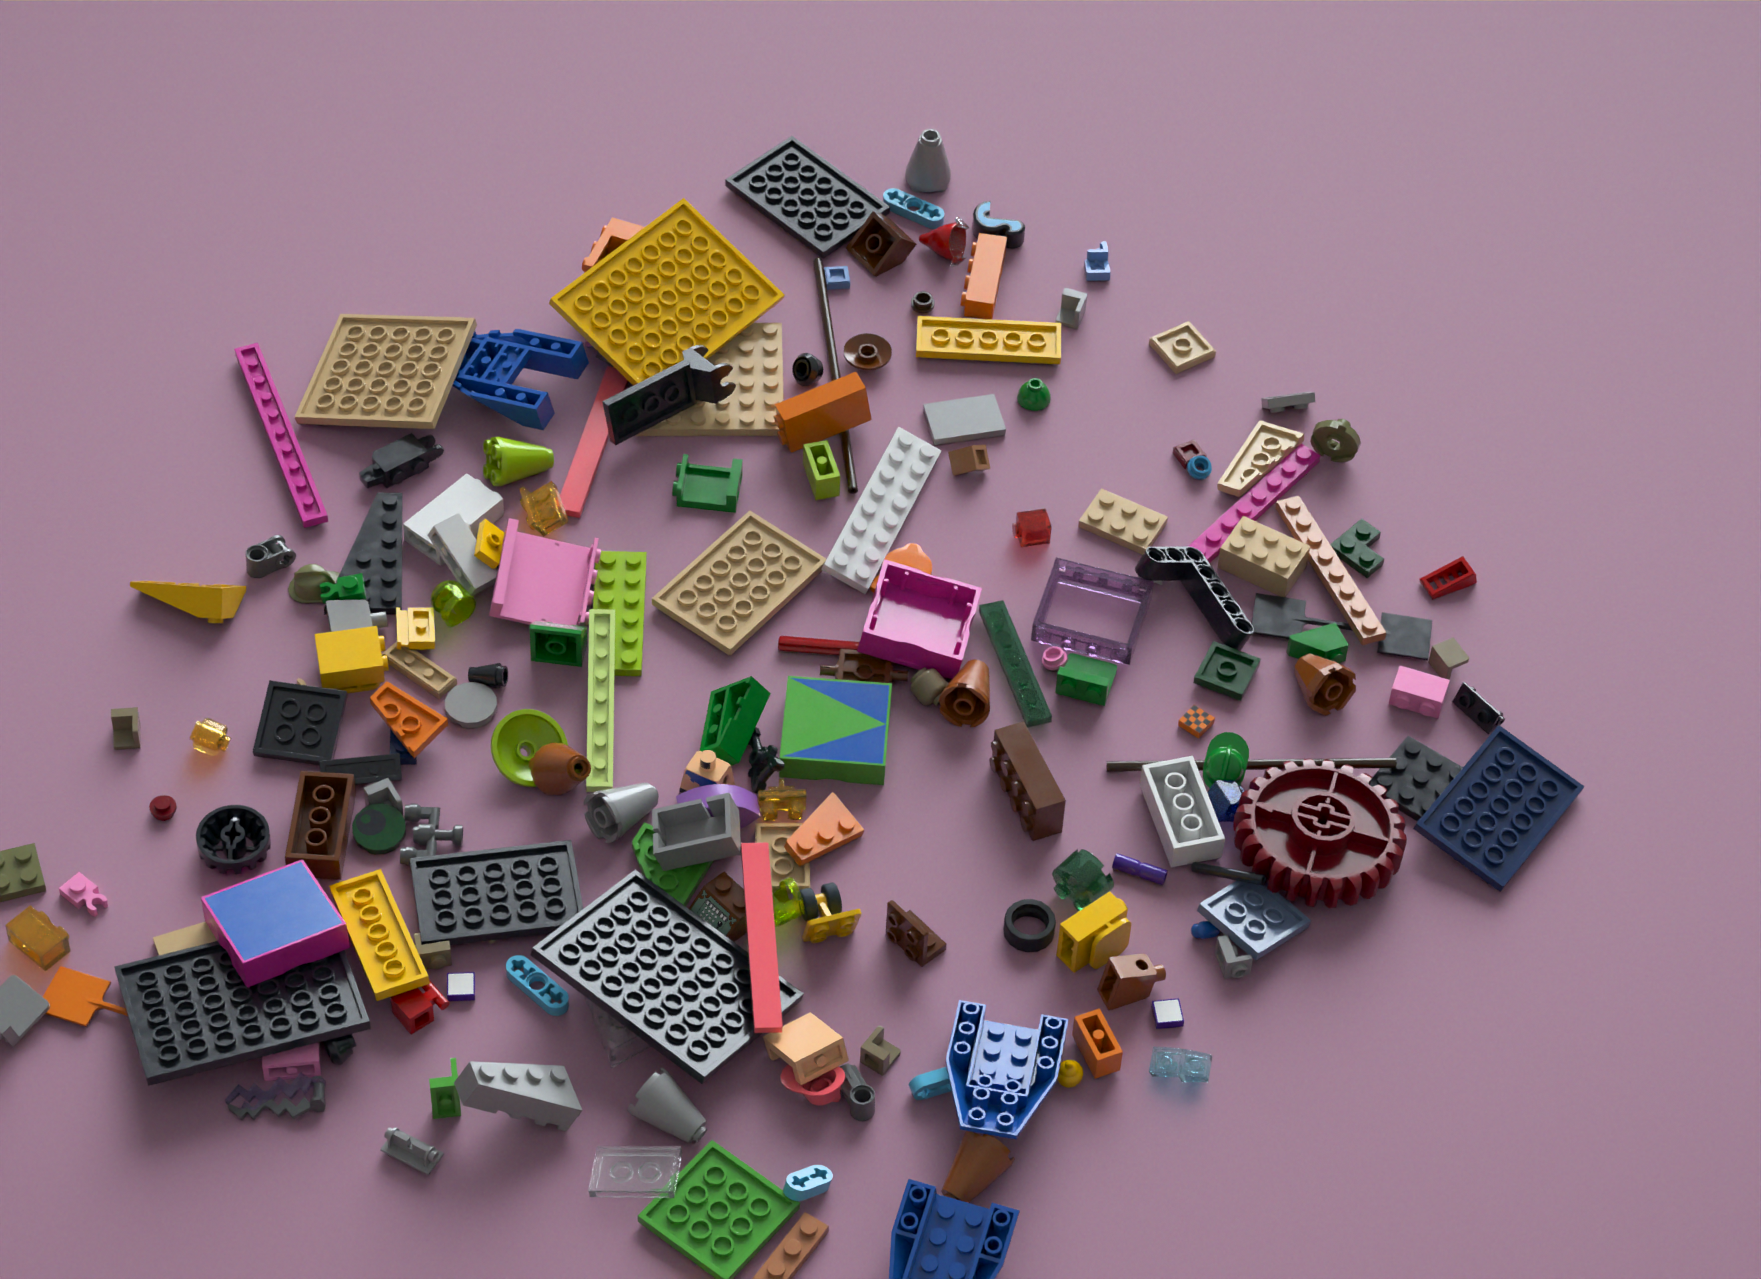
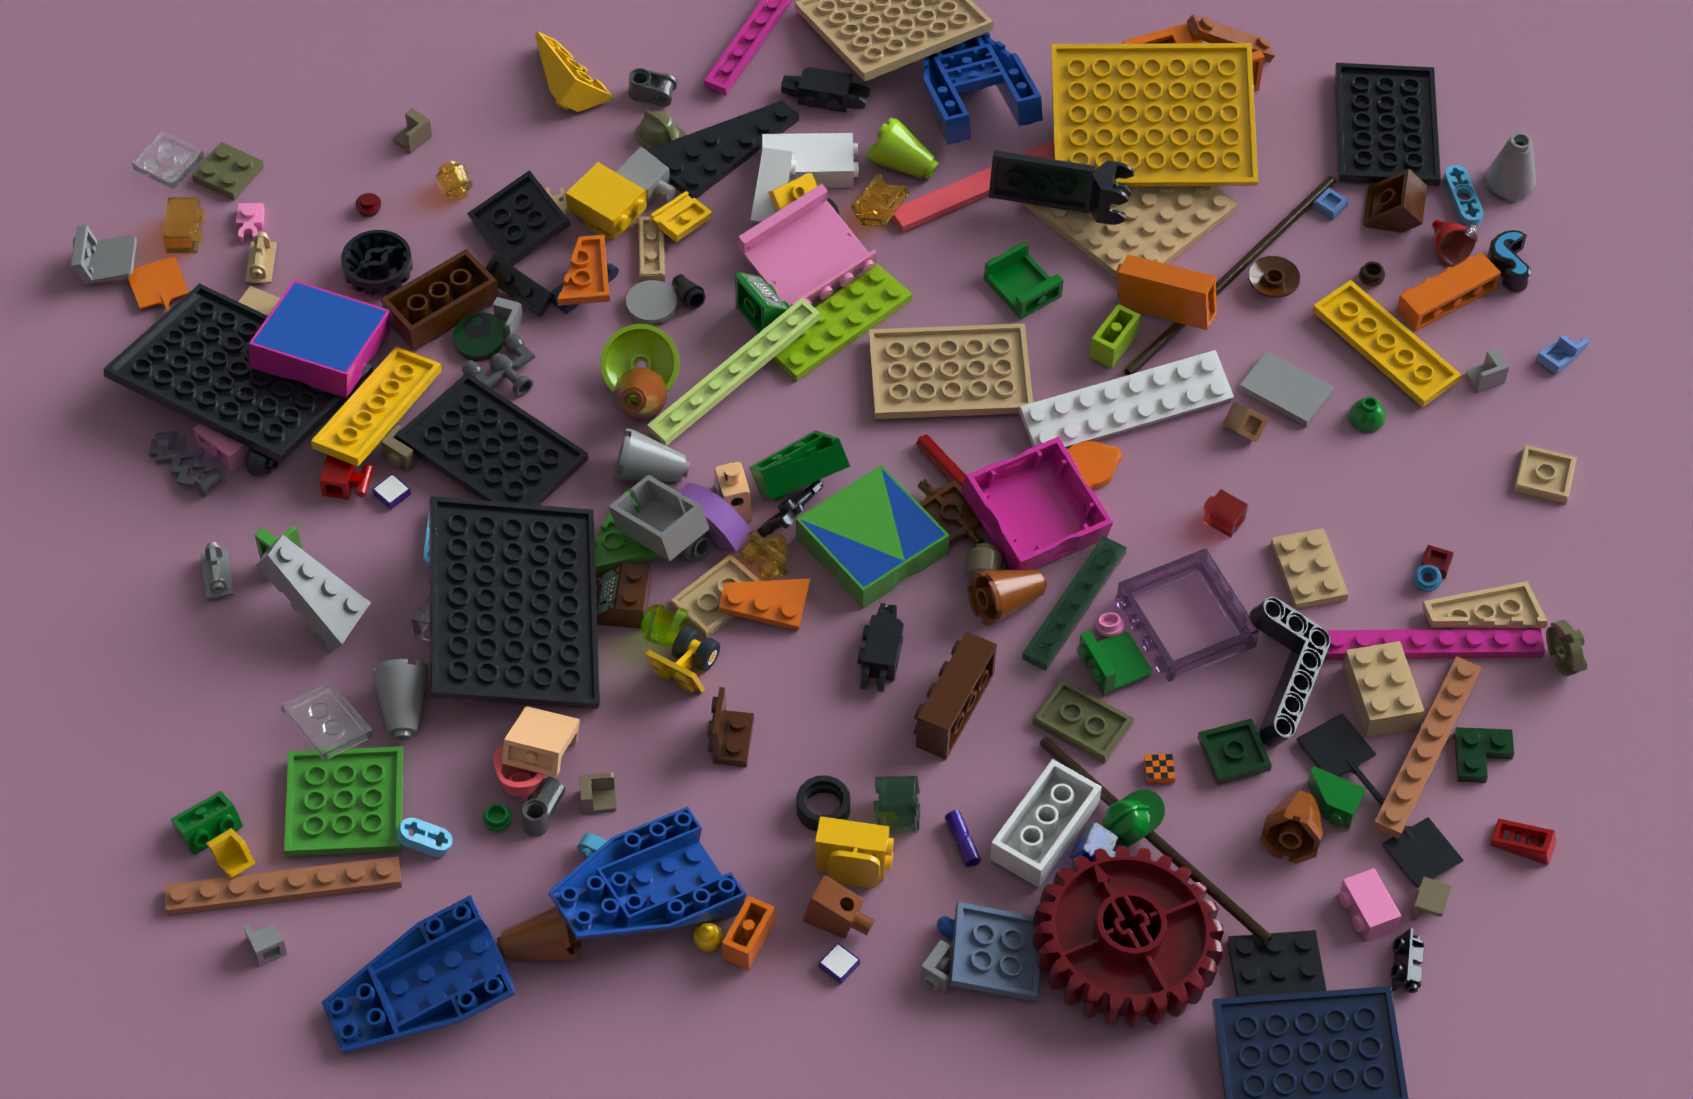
camera: 50 degrees right, 5 degrees up
(134, 913) = (261, 259): none -> tan hinge
(347, 588) = (667, 151): green plate -> none
(450, 596) = (727, 210): clear neon green helmet -> none
(642, 211) = (1214, 32): none -> dark orange plate
(761, 938) = (606, 633): coral tile -> none
(807, 369) = (1209, 254): black cone -> none
(834, 1127) = (497, 817): none -> green plate
(936, 795) = (882, 647): none -> black hinge
(1113, 733) = (1083, 721): none -> olive tile
(1181, 1063) = (793, 1008): clear light blue slope -> none
(1228, 873) = (1018, 902): black piece -> none
(1298, 400) = (1566, 581): light grey plate -> none

